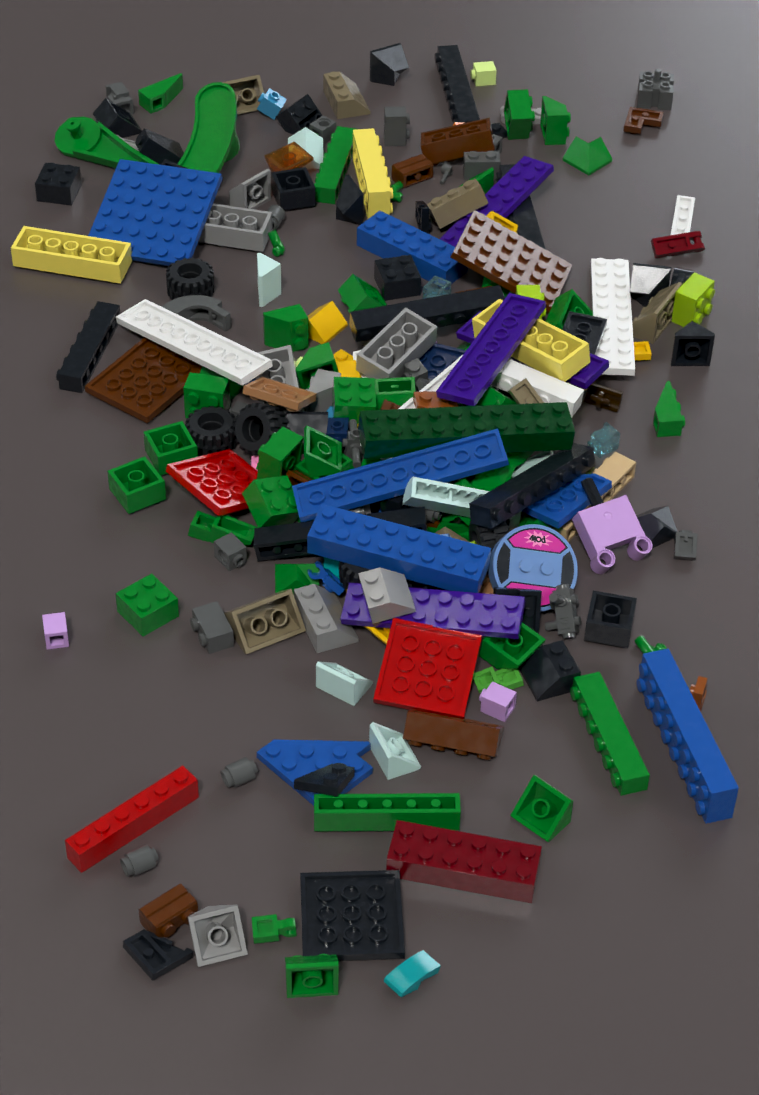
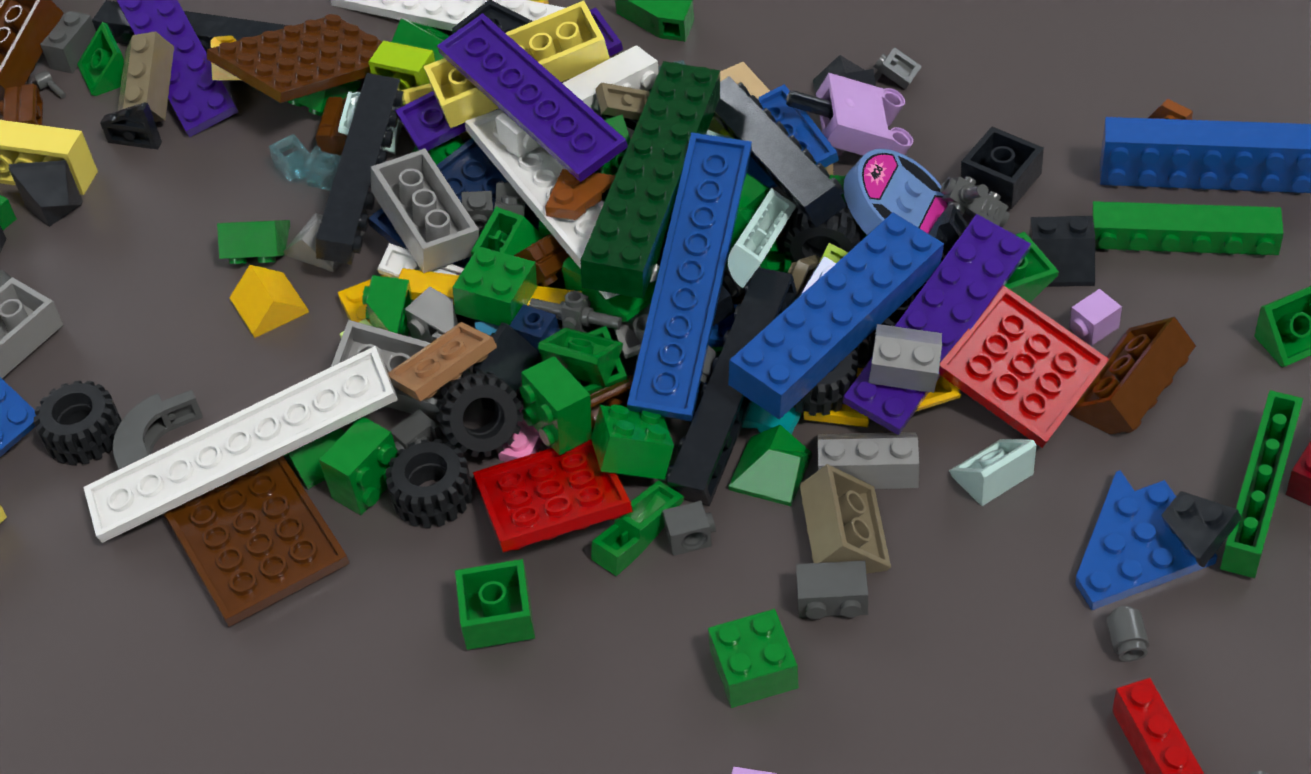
camera: 60 degrees left, 5 degrees up
(88, 348) = (136, 593): black brick -> none
(169, 445) = (437, 539): green brick -> none
(268, 279) = (142, 328): light aqua slope -> none
(278, 248) = (66, 303): green arm -> none
(286, 327) = (272, 331): green slope -> none
(330, 581) = (808, 426): blue plate -> none
(392, 751) = (1146, 454): light aqua slope -> none
(393, 238) = (187, 158): blue brick -> none
(397, 277) = (235, 189): black brick -> none
(508, 678) = (1052, 302): bright green slope -> none
(645, 647) = (1057, 152): green arm -> none

